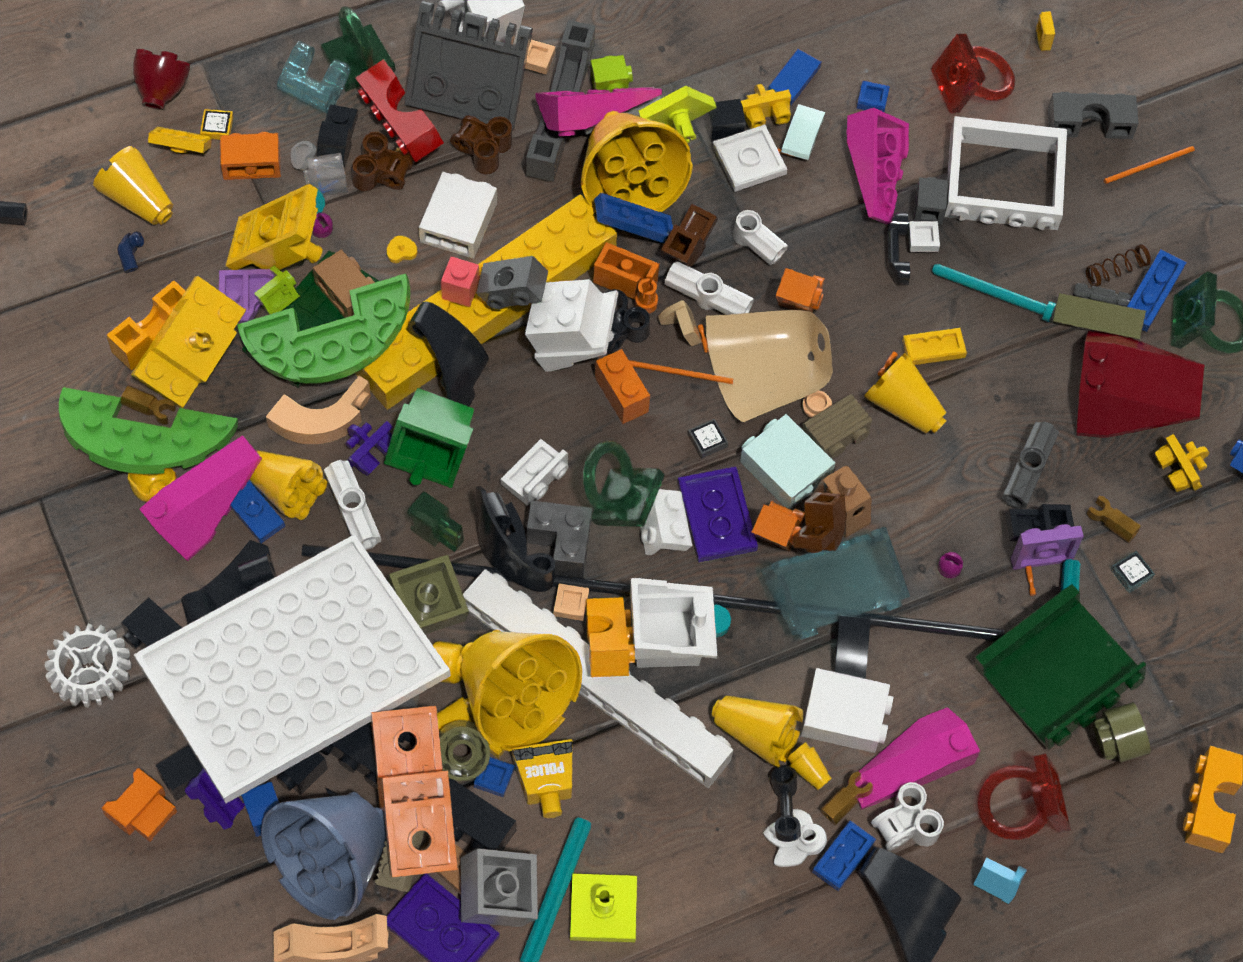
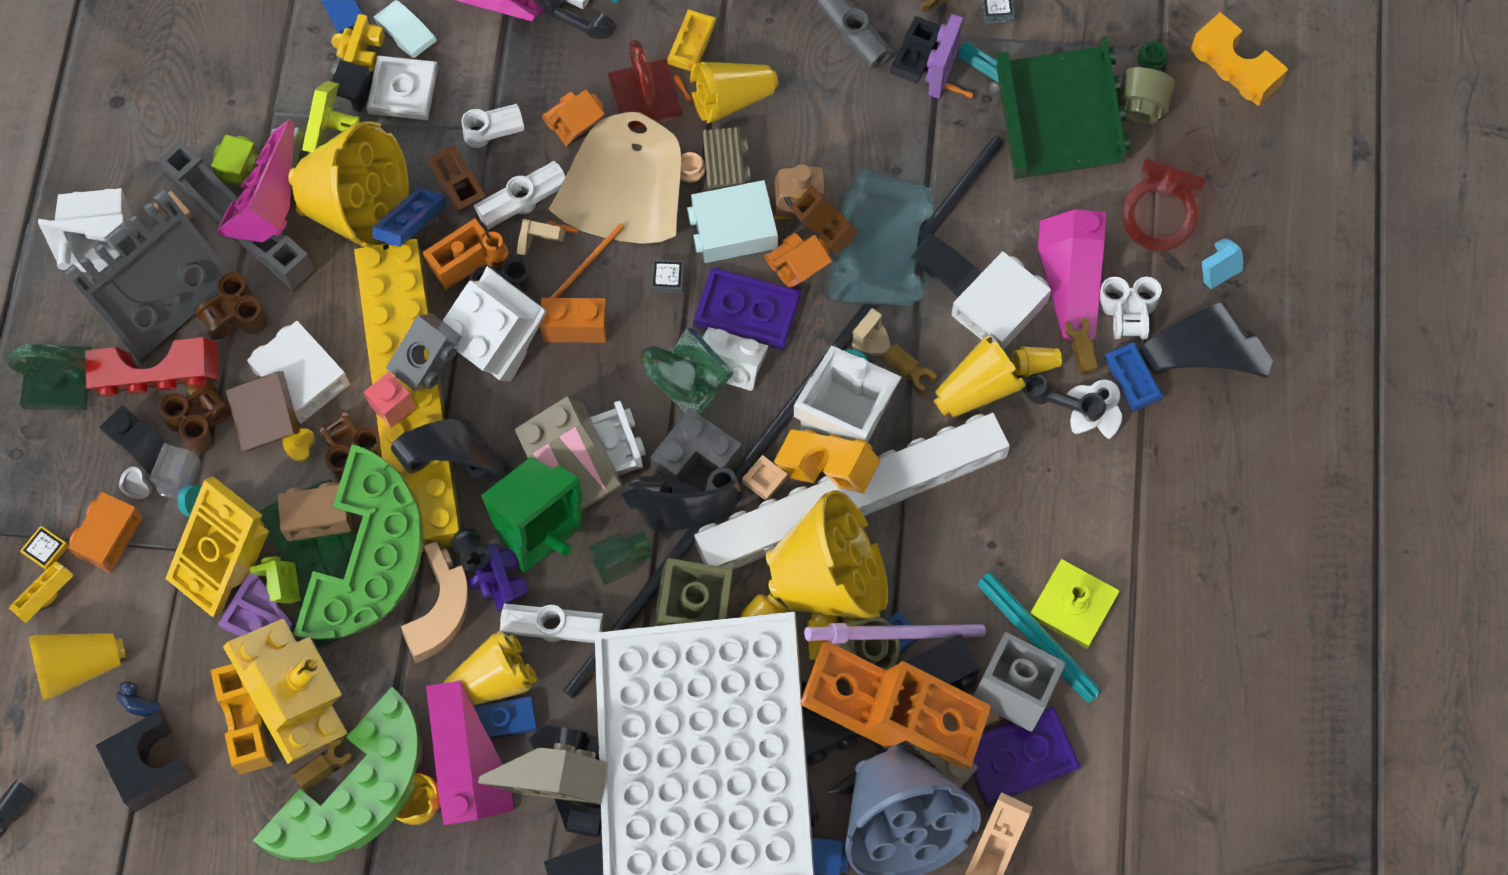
camera: 55 degrees left, 5 degrees up
(77, 270) = (129, 768): none -> black piece
(215, 562) = (552, 774): none -> dark tan slope
(306, 89) = (63, 441): clear light blue connector -> none
(372, 413) = (473, 554): none -> black bush
(408, 206) = (262, 411): none -> tile
(422, 275) = (340, 436): none -> reddish brown piece
(449, 712) = (840, 632): none -> lavender bar
(502, 441) = (569, 439): none -> dark tan slope
(545, 774) = (924, 587): yellow torso -> none
(740, 665) = (908, 367): none -> pearl gold bar
(750, 621) = (871, 335): none -> tan tile
(864, 334) = (645, 88): none -> clear red tile
(948, 568) = (912, 148): magenta hinge -> none
(1170, 725) = (1153, 56): none -> dark green plate

